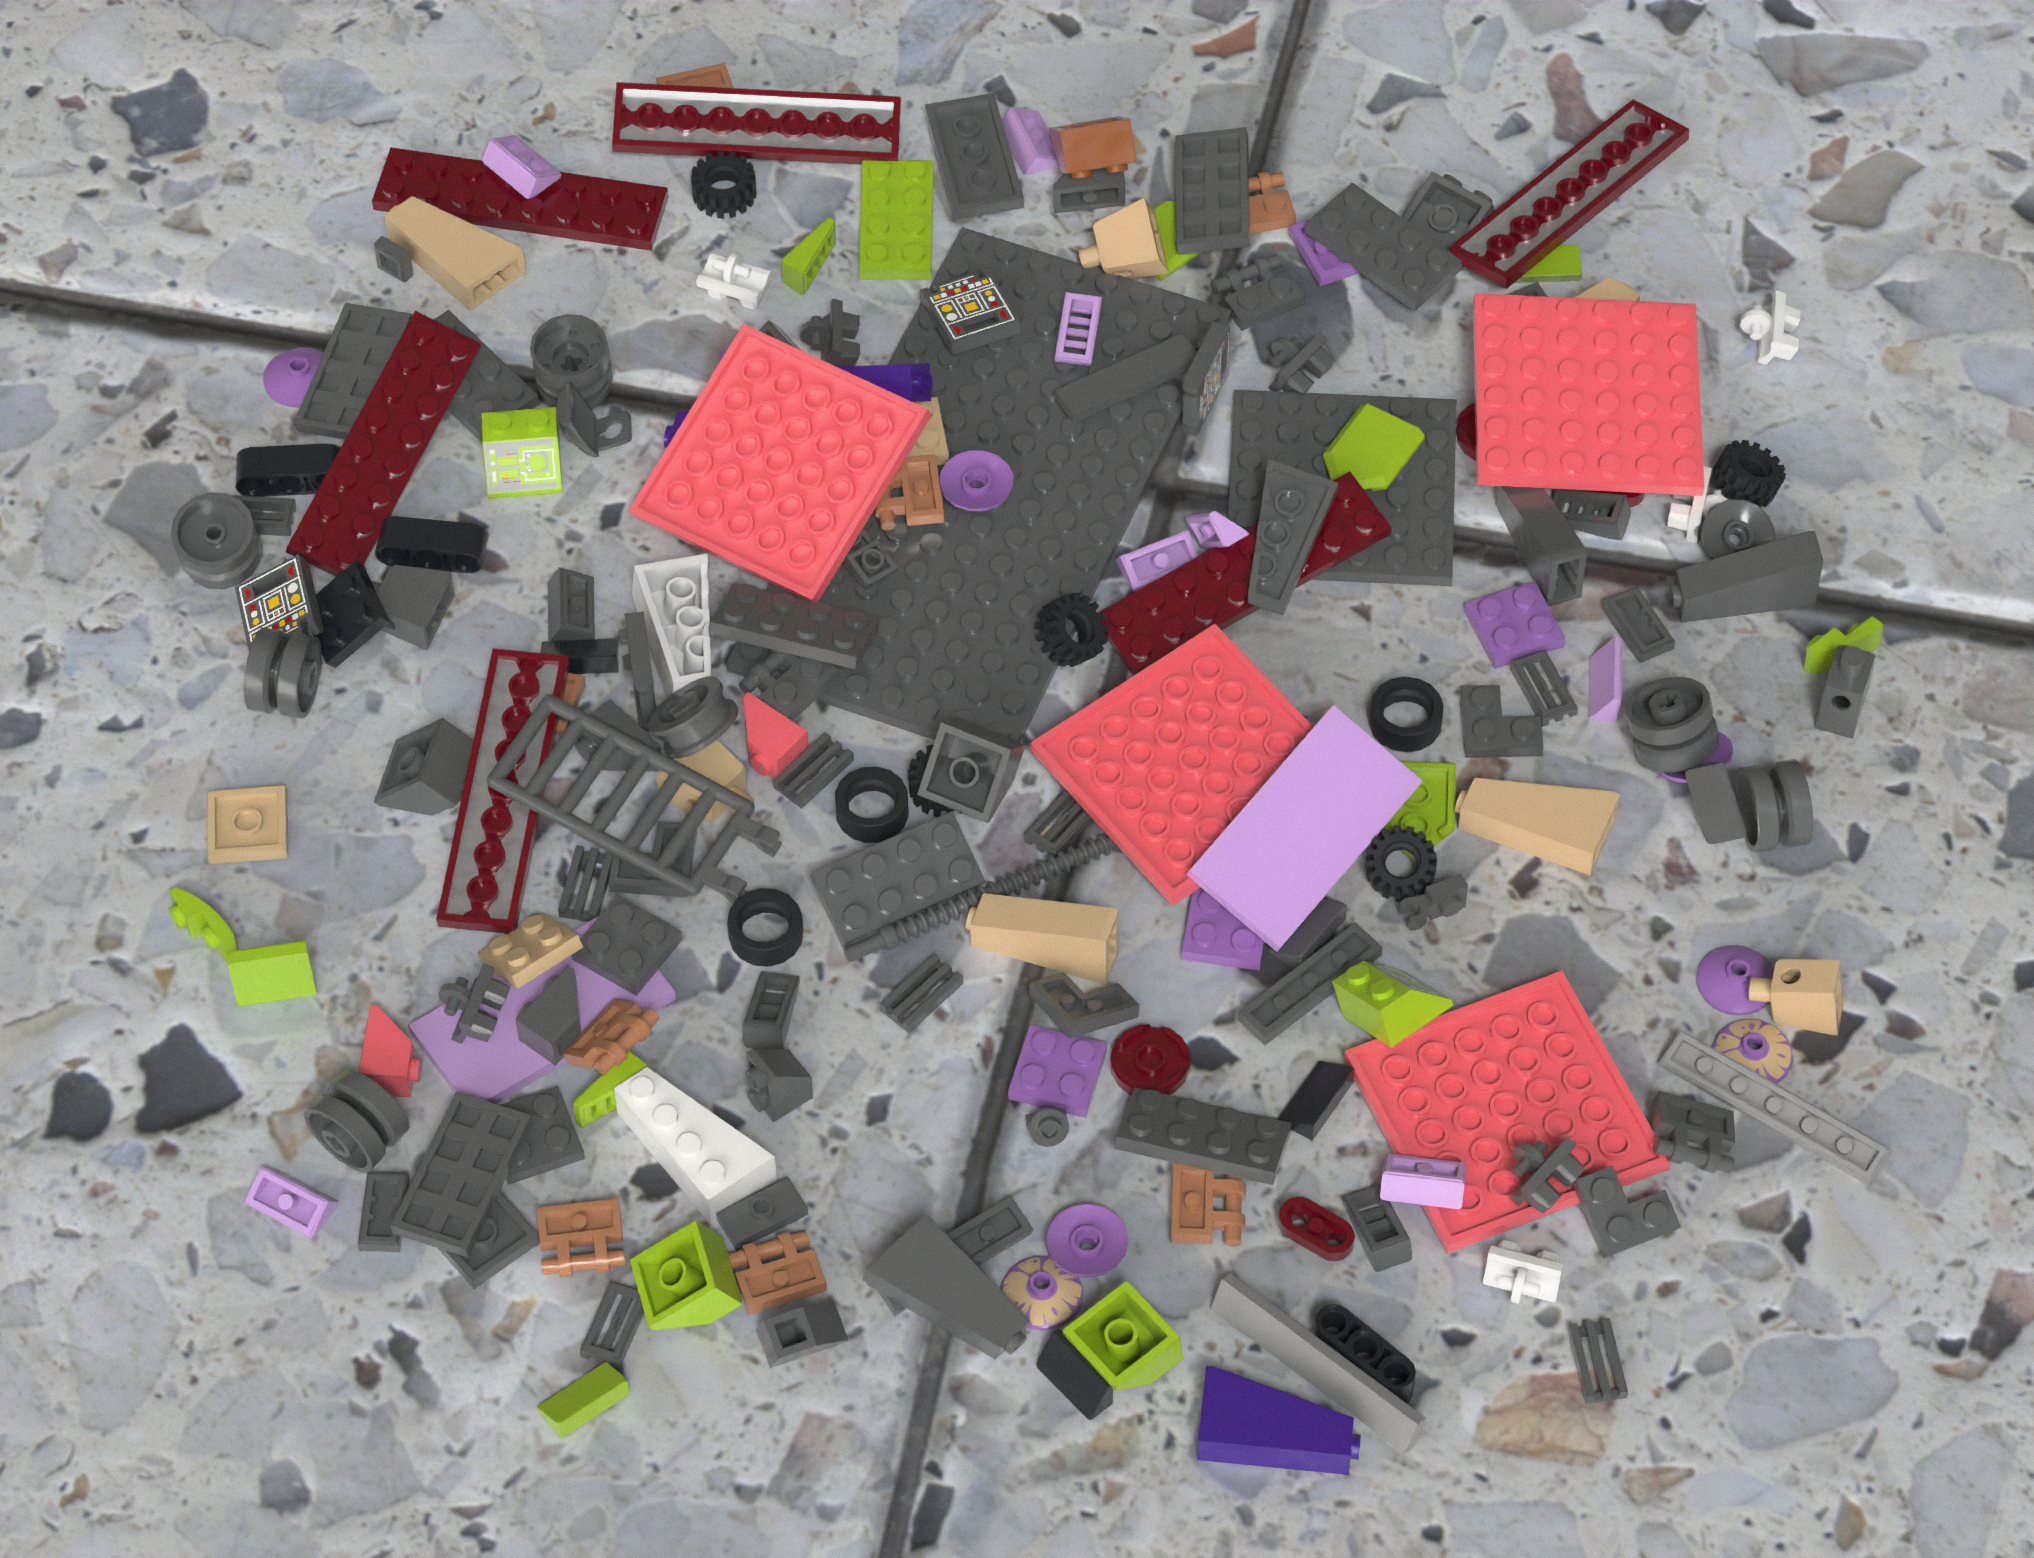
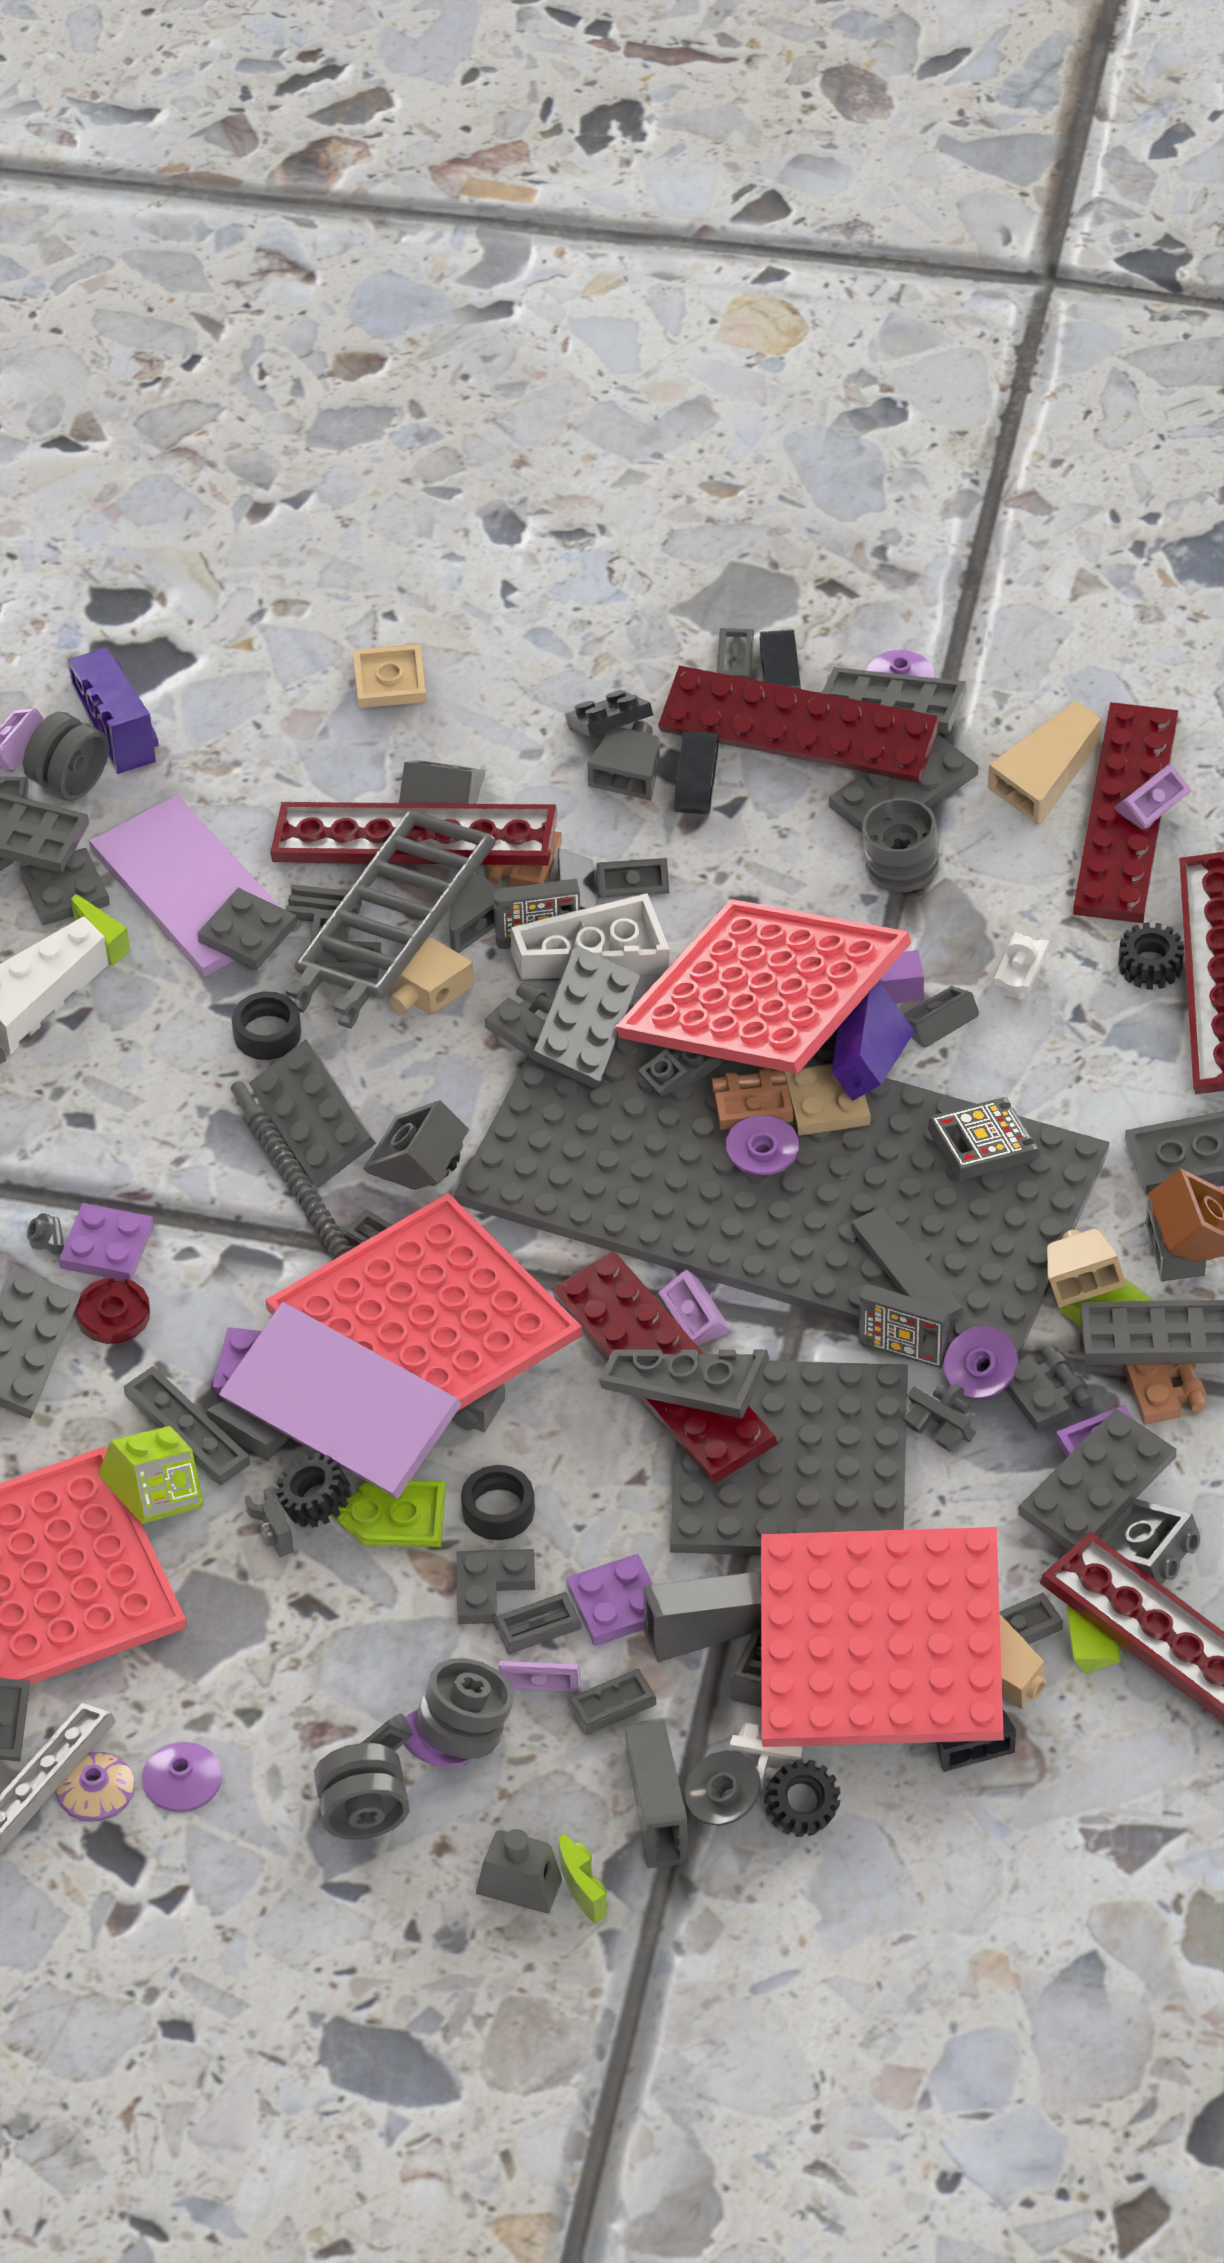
camera: 90 degrees right, 5 degrees down
(200, 920) = (282, 661): lime slope -> none
(216, 540) = (686, 620): dark grey wheel -> none
(266, 1085) = (114, 709): none -> wedge
(271, 973) = (220, 692): lime tile -> none
(280, 600) = (615, 672): dark grey container -> none
(282, 673) = (534, 672): dark grey wheel -> none
(389, 1055) = (145, 780): coral slope -> none
(393, 259) = (1034, 716): dark grey tile -> none
(472, 1020) = (183, 820): dark grey hips -> none
(521, 452) = (804, 826): lime slope -> none
(530, 949) = (242, 862): tan plate -> none
(552, 1018) = (167, 880): dark grey slope -> none
(582, 426) = (837, 863): dark grey piece -> none
(611, 1036) = (141, 914): nougat plate -> none
(693, 717) = (473, 944): dark grey wheel -> none
(769, 1032) = (164, 1027): dark grey slope -> none
(771, 737) = (463, 1017): coral slope -> none
(777, 1081) = (93, 1031): dark grey slope -> none
(807, 258) = (1058, 1023): lime slope -> none
(808, 766) = (448, 1052): dark grey tile -> none
(828, 334) = (957, 1039): dark grey hips -> none
(867, 780) = (396, 1074): black tyre -> none
(896, 220) = (1120, 1093): lime plate -> none
(932, 965) = (200, 1138): dark grey tile -> none
(1048, 933) = (239, 1222): tan slope -> none
(1080, 1011) = (160, 1250): dark grey plate -> none
(1085, 305) = (978, 1237): lavender slope -> none
(1087, 624) = (568, 1221): black tyre -> none
(1214, 529) = (707, 1331): lavender slope -> none
(1251, 323) = (973, 1349): none -> medium lavender dish
(1318, 1098) = (60, 1432): black slope -> none
(1372, 448) = (820, 1468): lime tile -> none
(1540, 819) = (363, 1614): tan slope -> none
(1768, 327) = (1030, 1837): white hips -> none
(1803, 994) = (145, 1798): tan torso -> none

